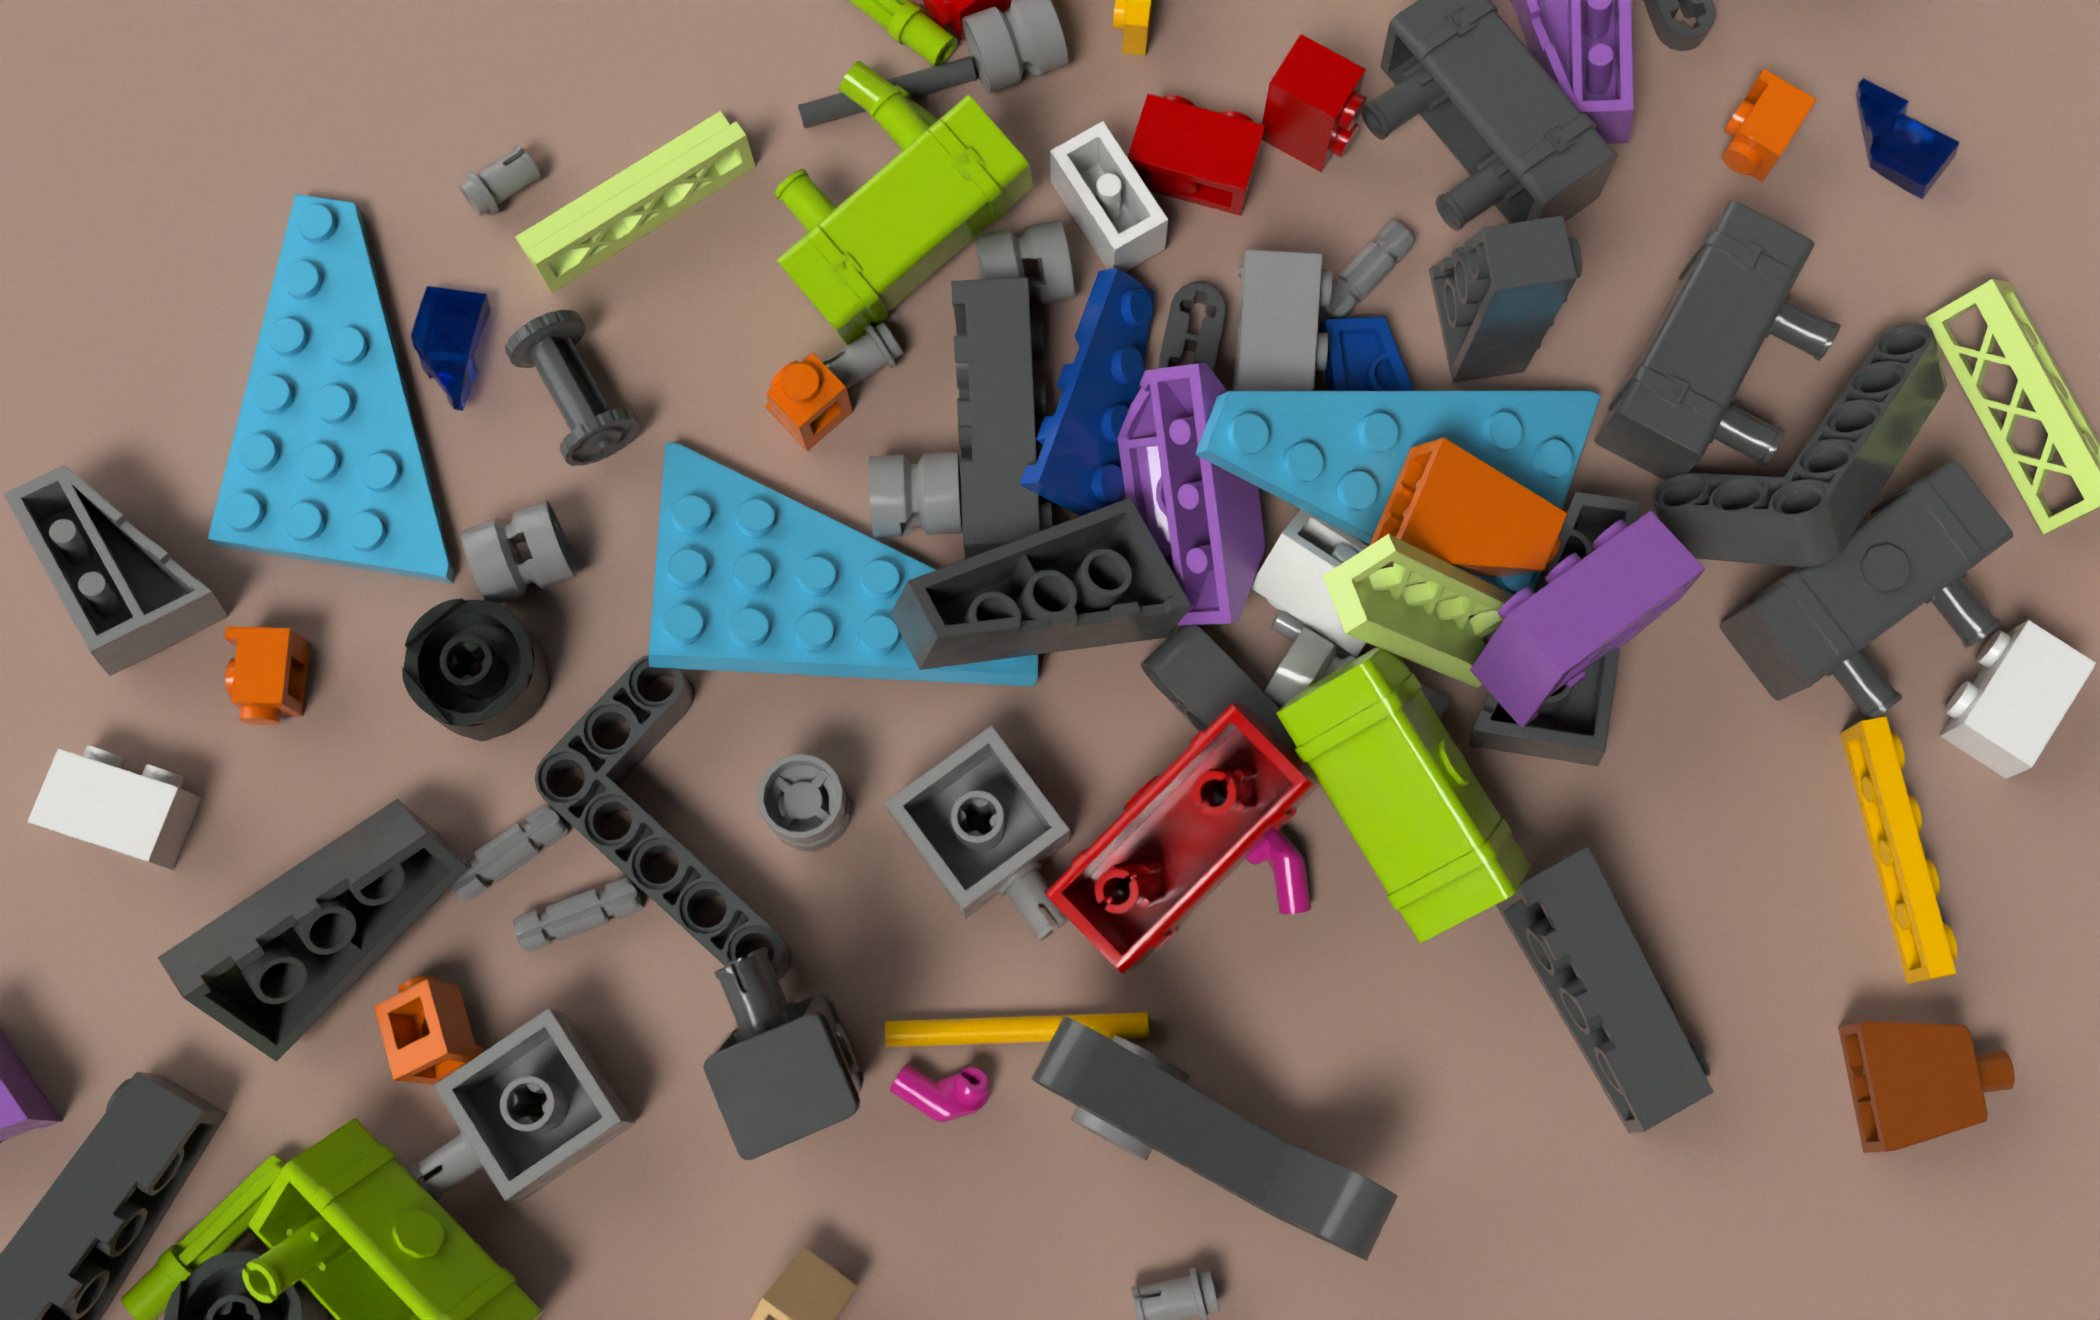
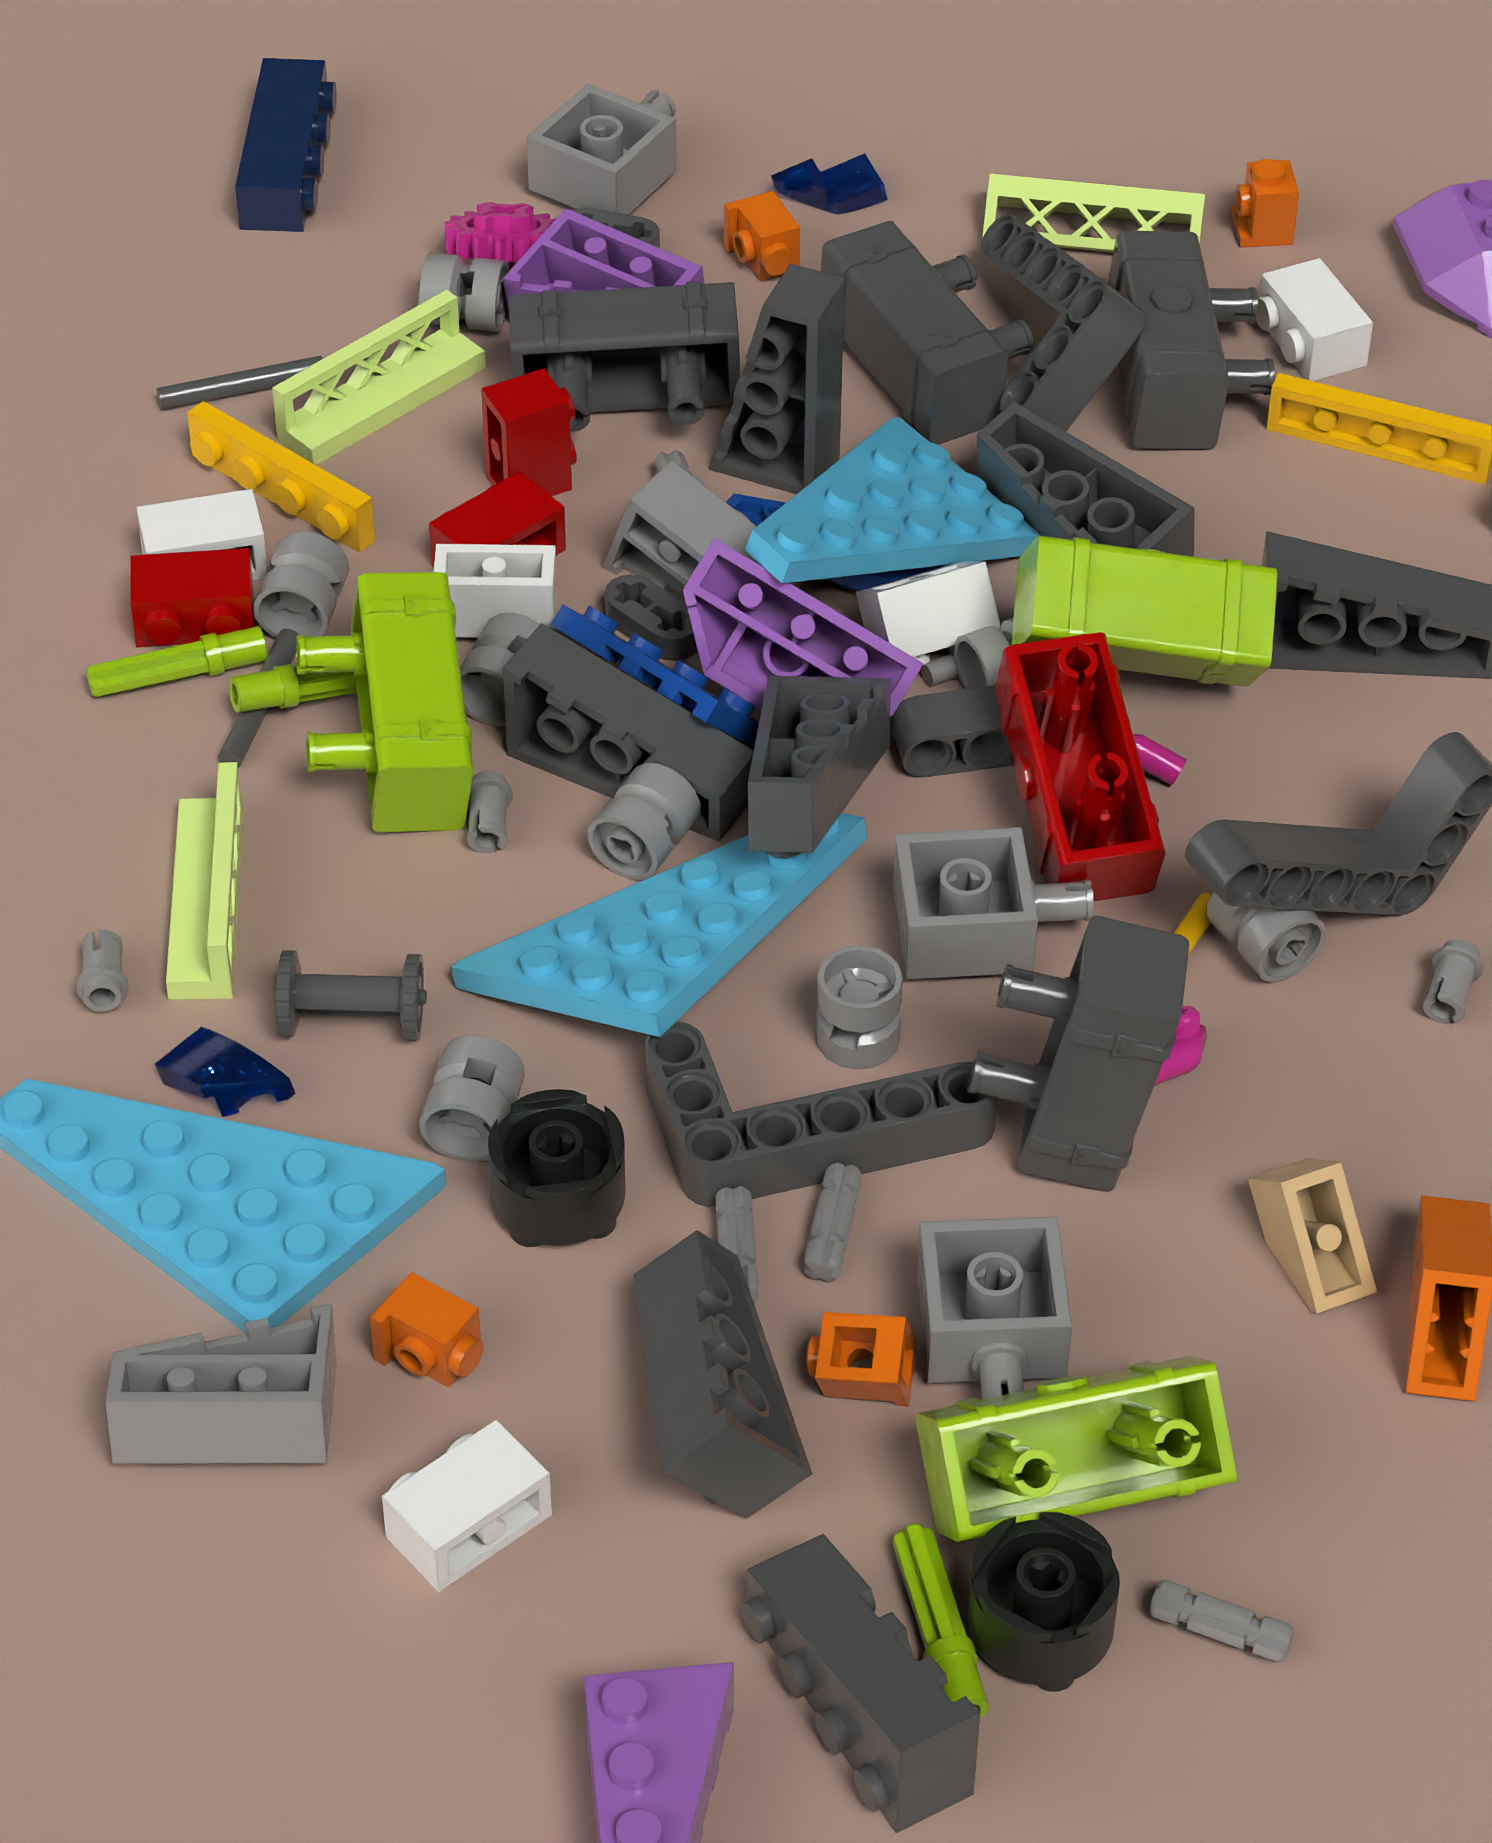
camera: 60 degrees left, 30 degrees down
(808, 400) = (498, 854): orange brick -> none
(1413, 619) = (991, 518): yellowish green fence -> none
(1469, 514) = (949, 486): orange slope -> none
(1583, 613) = (1087, 453): medium lavender wedge -> none

